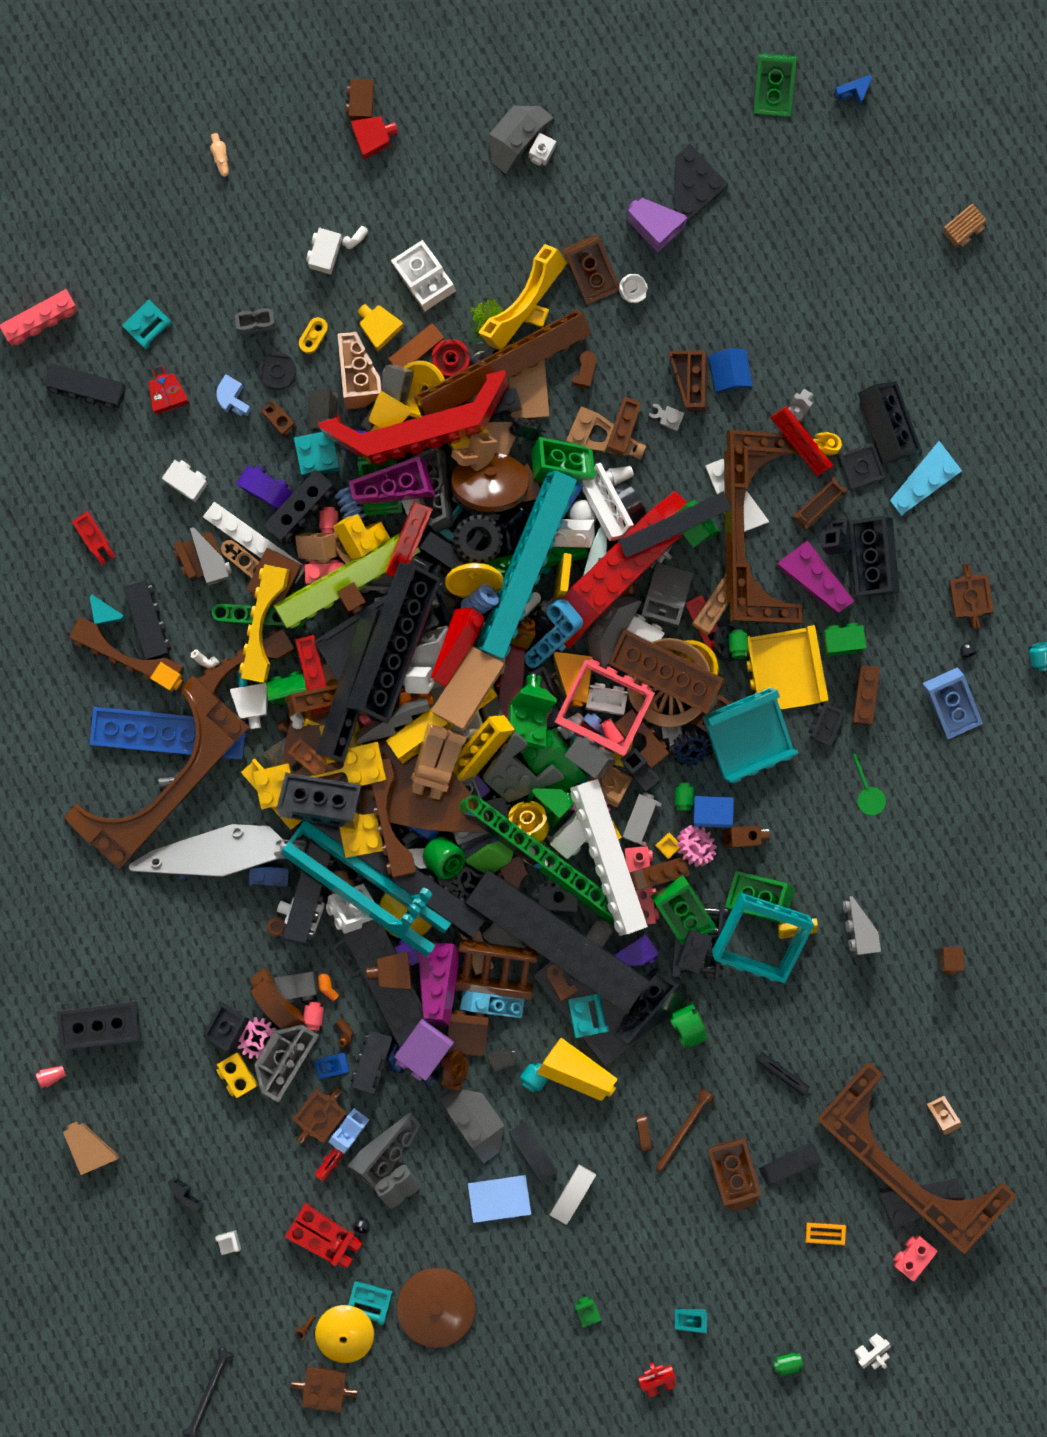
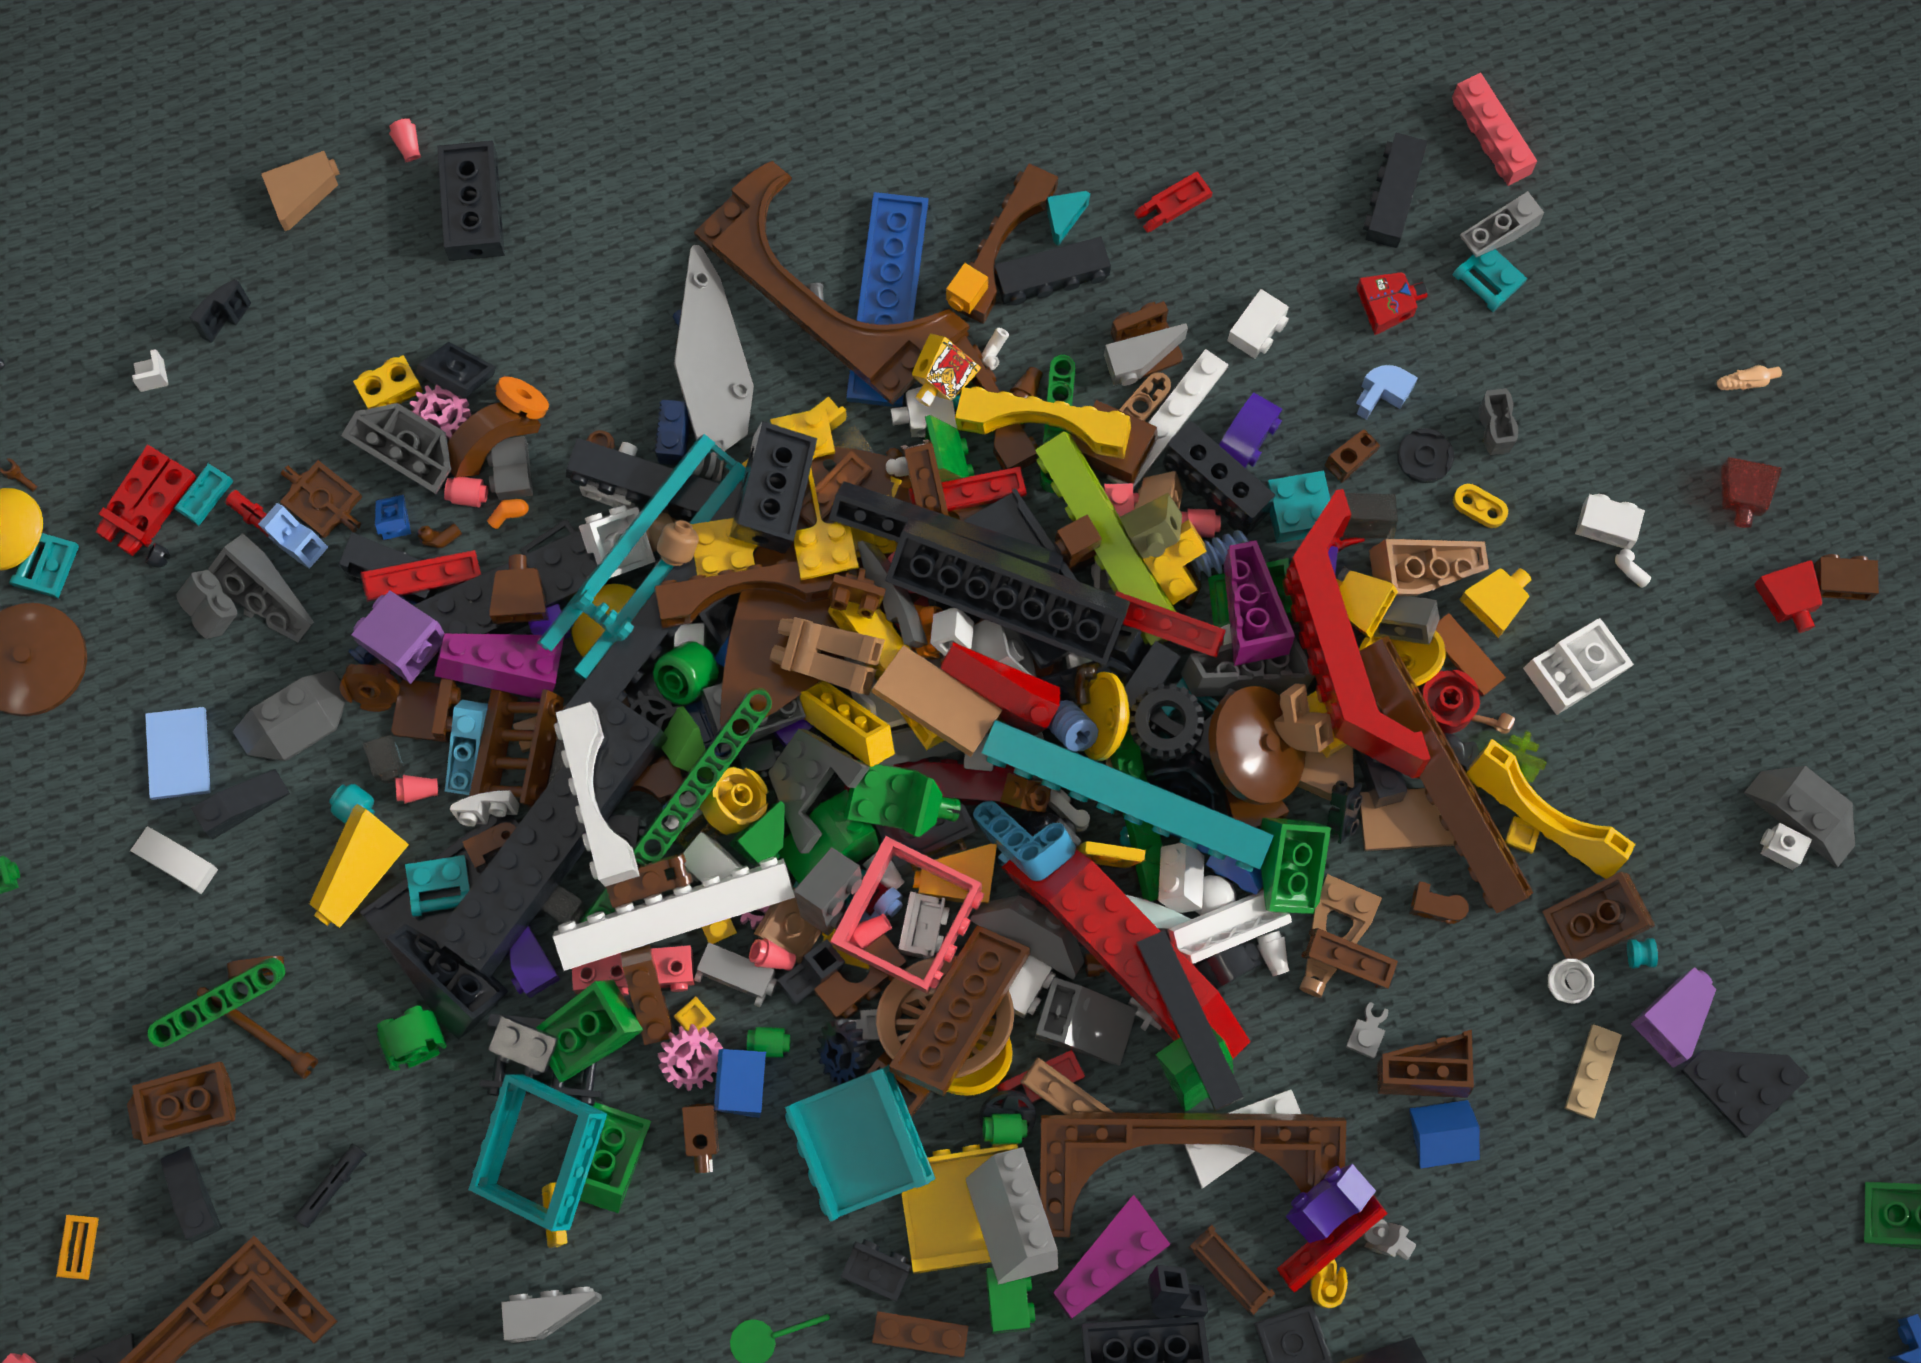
camera: 90 degrees right, 10 degrees down
(112, 314) = (1503, 225): none -> light grey slope
(229, 692) = (942, 370): none -> torso
(235, 638) = (1028, 383): none -> reddish brown cone
(246, 981) = (521, 396): none -> orange tile
(300, 159) = (1747, 488): none -> clear red torso
(317, 1197) = (203, 494): none -> teal plate
(341, 548) = (1154, 526): none -> olive torso
(361, 863) = (677, 543): none -> medium nougat head
(378, 1040) = (420, 575): none -> red tile
(392, 742) = (856, 590): none -> reddish brown hips
(451, 595) = (1081, 683): none -> dark brown arm
(463, 325) = (1503, 724): none -> medium nougat hand
(495, 920) = (582, 737): none -> white arch
(521, 1038) = (415, 788): none -> coral cone
(537, 993) = (478, 807): none -> white slope
(587, 875) = (651, 881): none -> reddish brown plate
(613, 243) = (1642, 953): none -> teal wheel
(630, 797) = (769, 955): none -> coral cone
(662, 1148) = (206, 1011): none -> green beam
(689, 277) = (1593, 1071): none -> tan plate
(780, 441) = (1330, 1202): none -> dark purple brick
(795, 637) = (1012, 1217): none -> light grey slope

